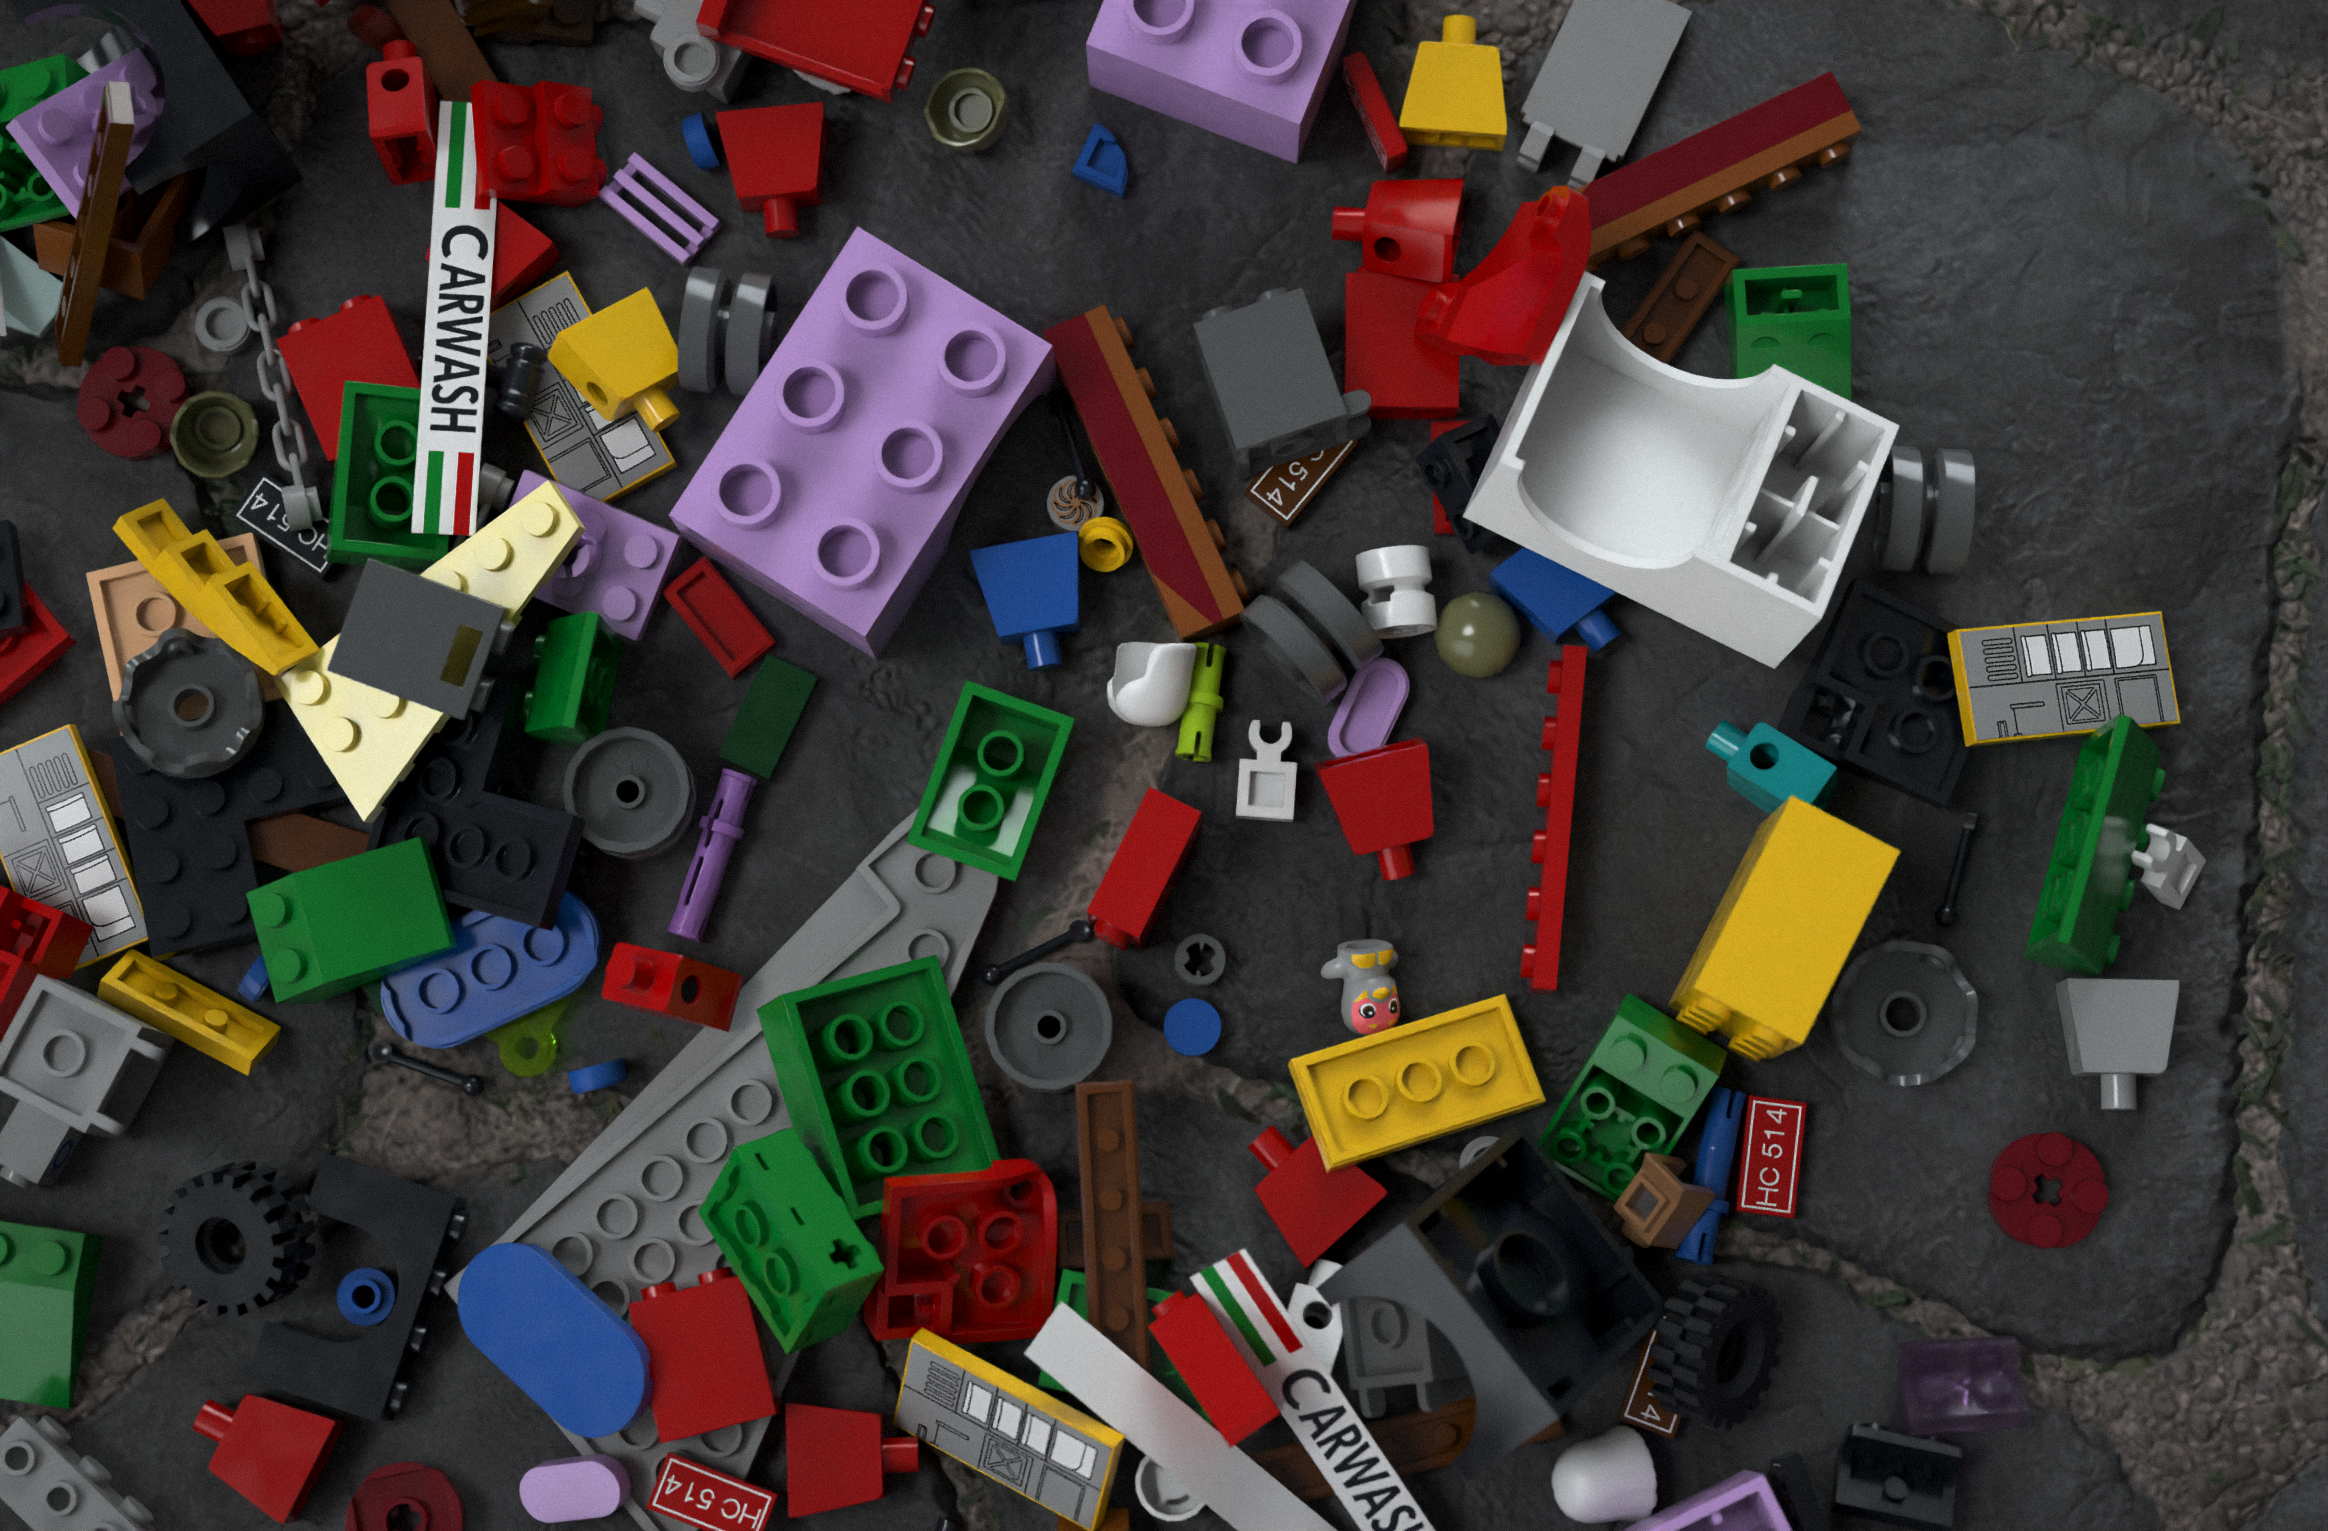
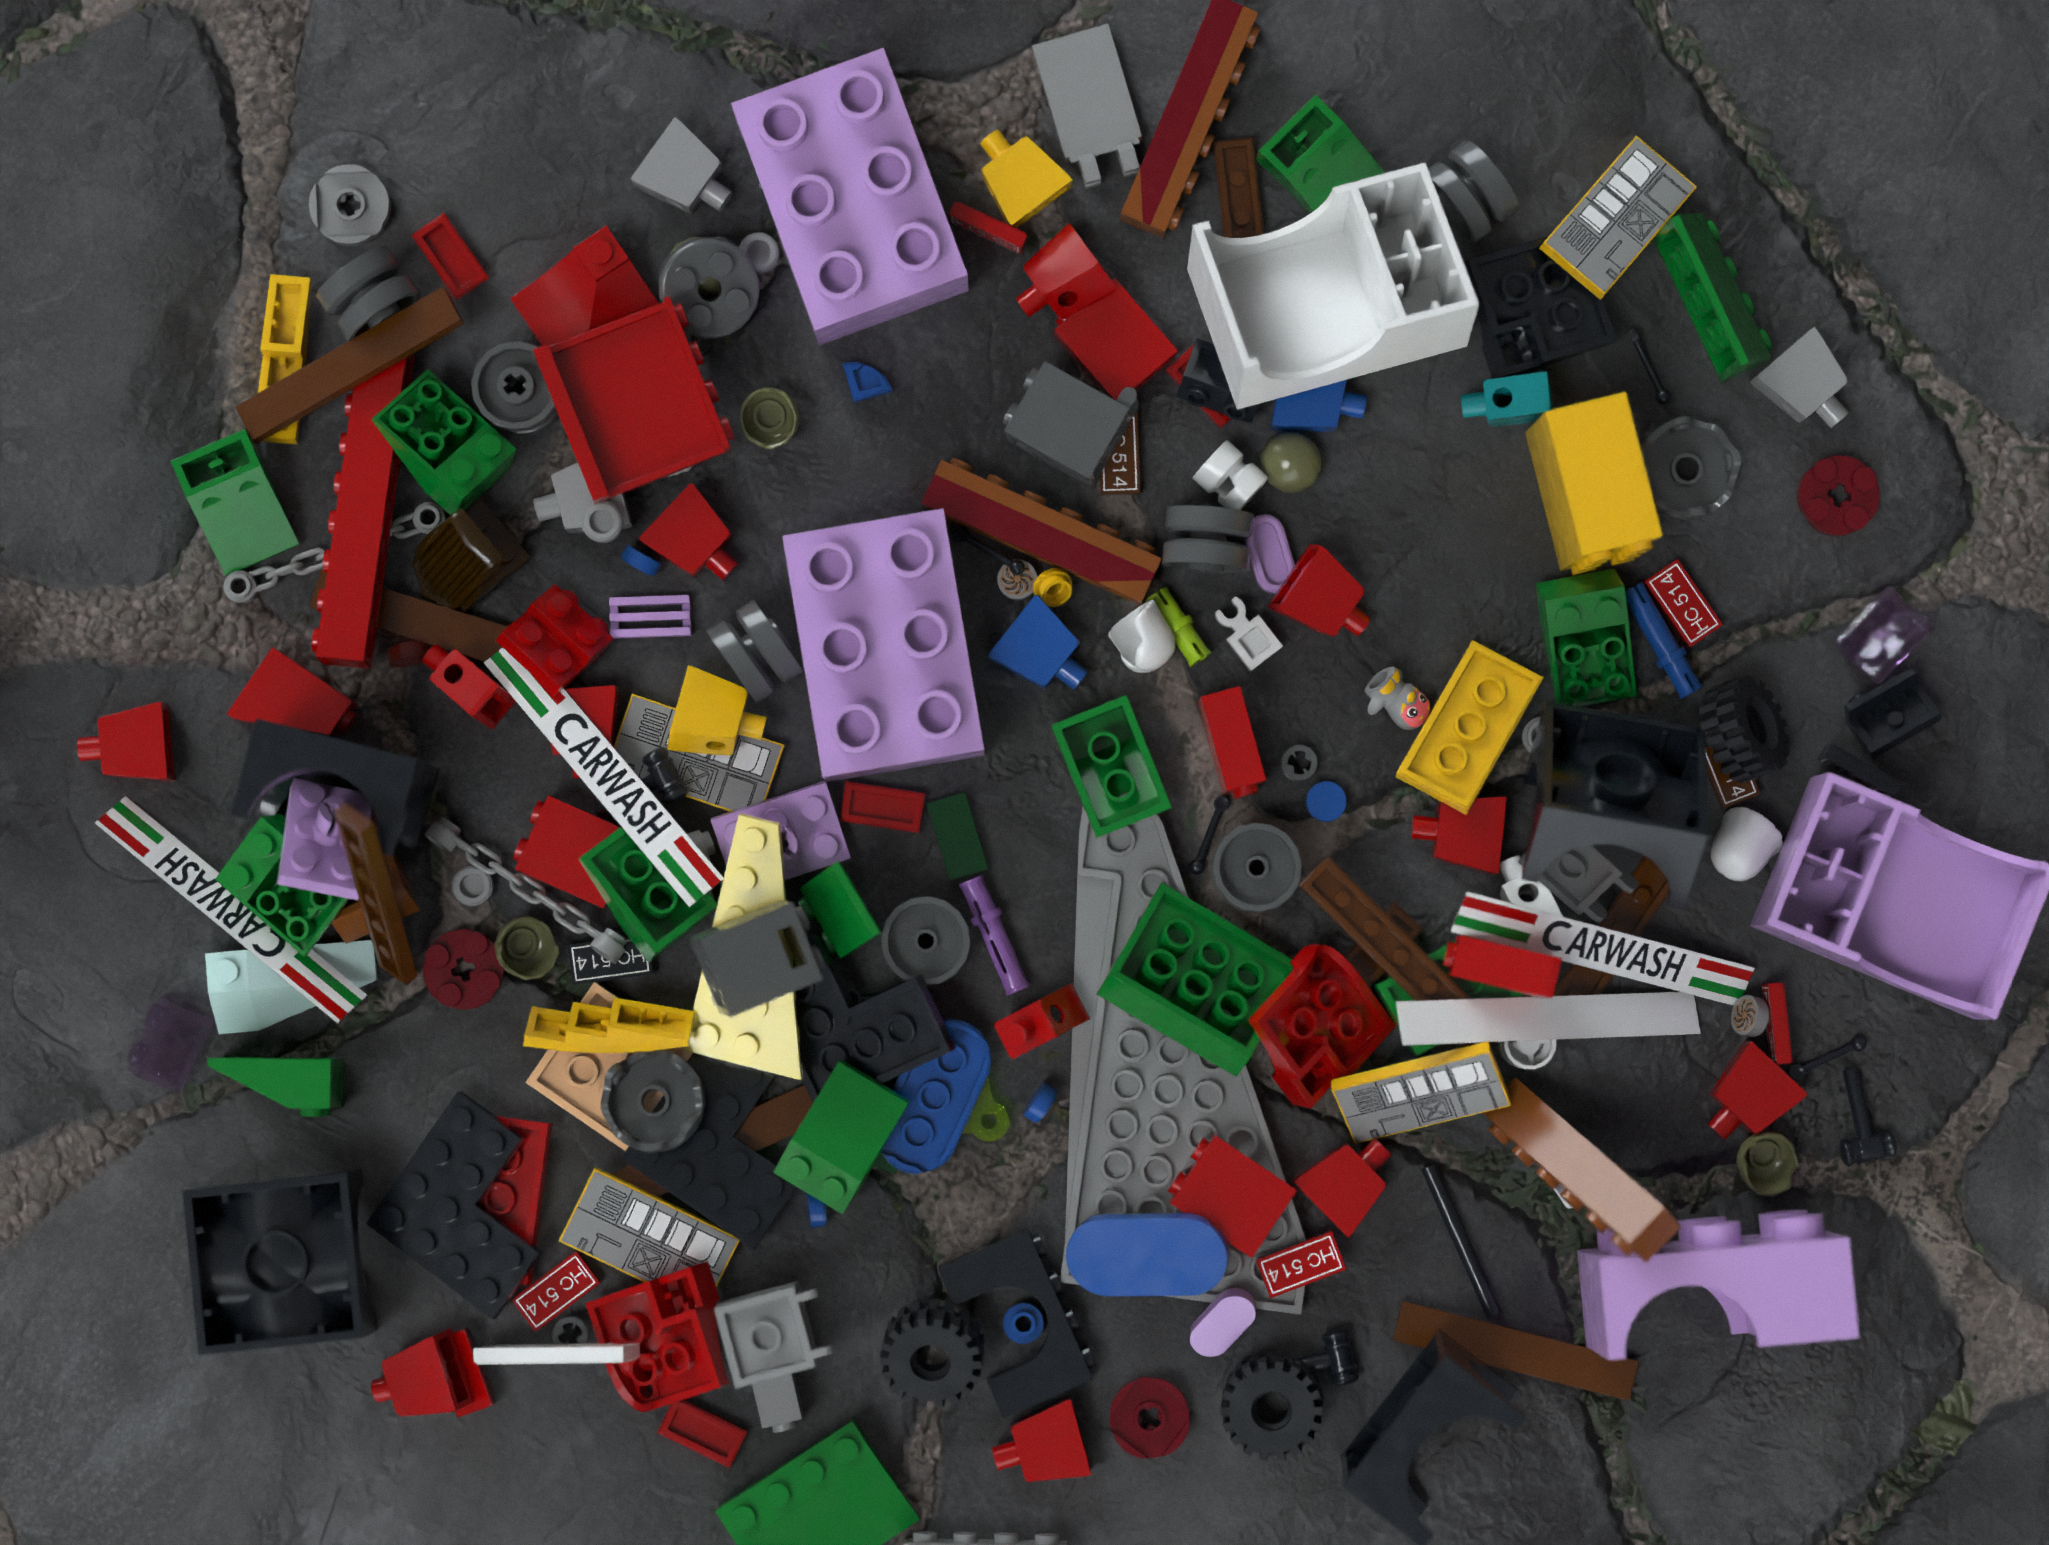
camera: 50 degrees left, 5 degrees up
(189, 1011) = (794, 1261): yellow plate -> none
(384, 1054) = (915, 1191): black hinge -> none
(790, 1240) = (1227, 1095): green piece -> none
(1521, 289) = (1160, 262): red slope -> none
(1551, 844) = (1428, 539): red plate -> none
(1659, 1206) = (1650, 680): medium nougat window -> none
(2169, 865) = (1757, 269): white plate -> none

